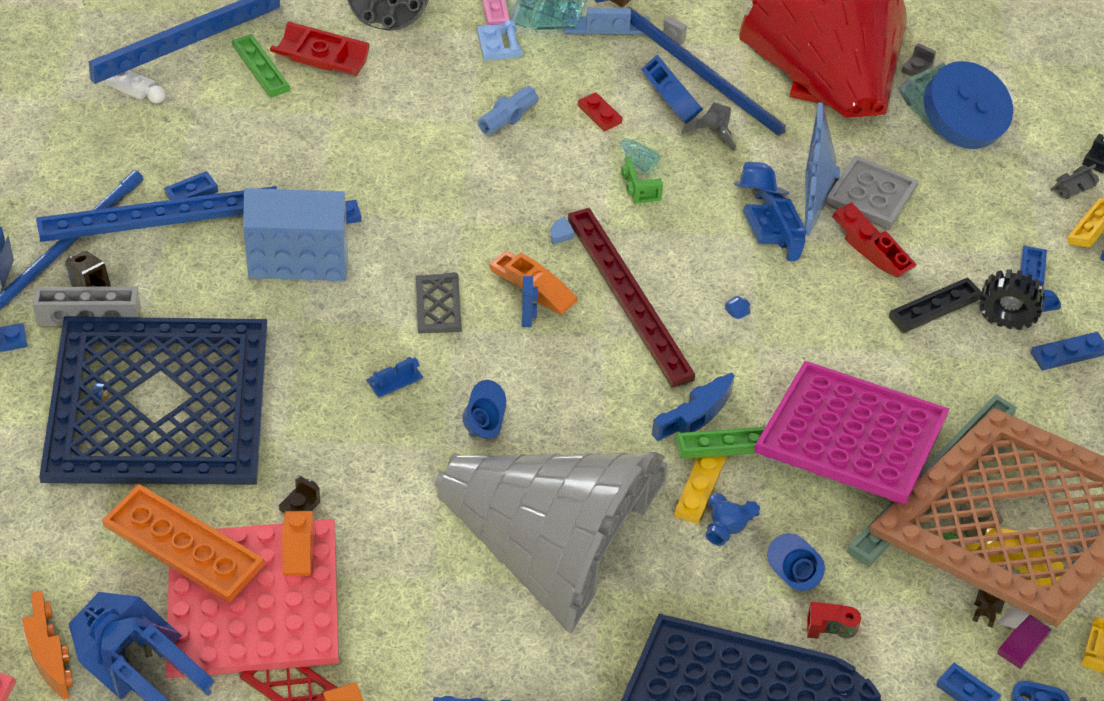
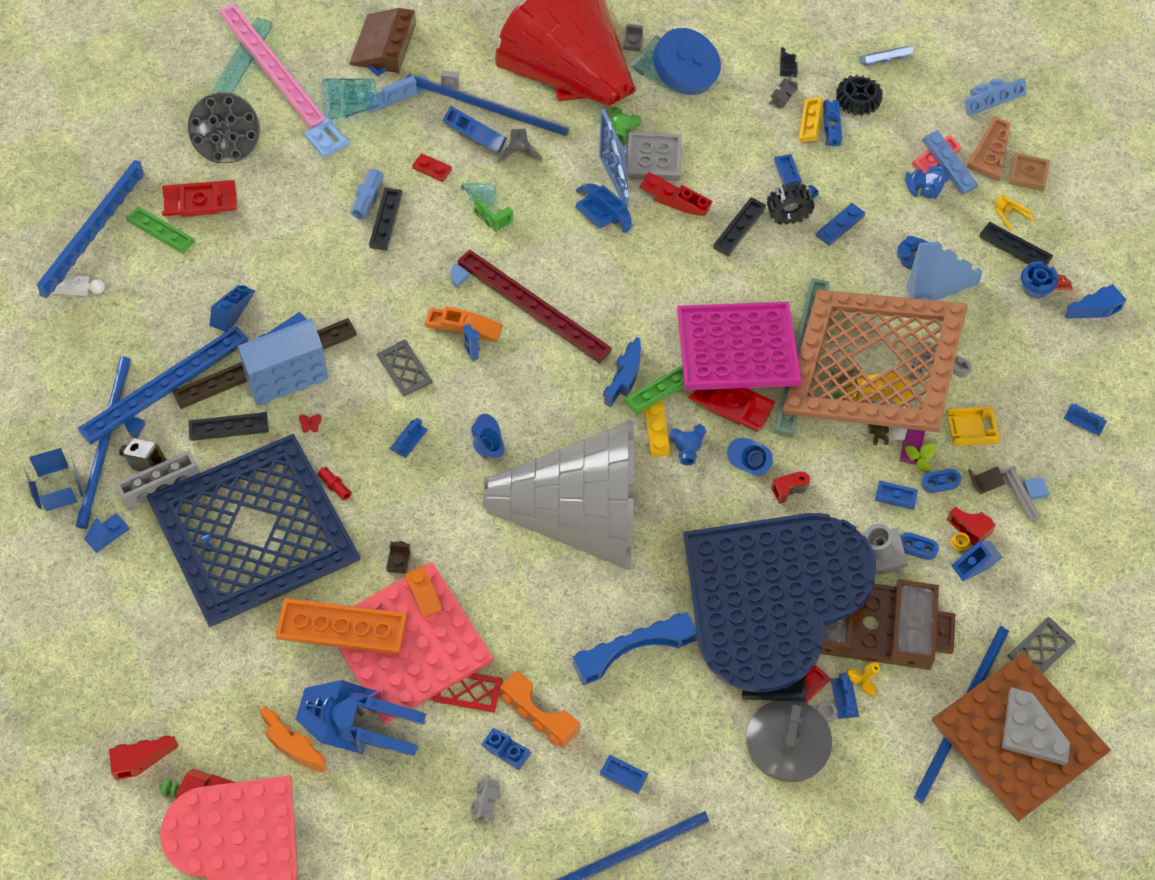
camera: 25 degrees left, 10 degrees up
(102, 245) = (134, 426): none -> blue tile
(194, 186) = (173, 353): blue plate -> none
(202, 284) = (228, 426): none -> black plate
(233, 236) = (235, 374): none -> dark brown plate
(279, 390) = (334, 483): none -> red pin
(281, 167) = (230, 307): none -> blue slope
(295, 318) = (310, 423): none -> red piece
(513, 143) = (385, 219): none -> black plate
(737, 307) = (610, 283): blue piece -> none
(759, 176) = (575, 177): blue piece -> none
(815, 500) = (736, 405): none -> red piece
(853, 144) = (623, 123): none -> bright green animal
(1034, 652) = (926, 451): none -> lime plant

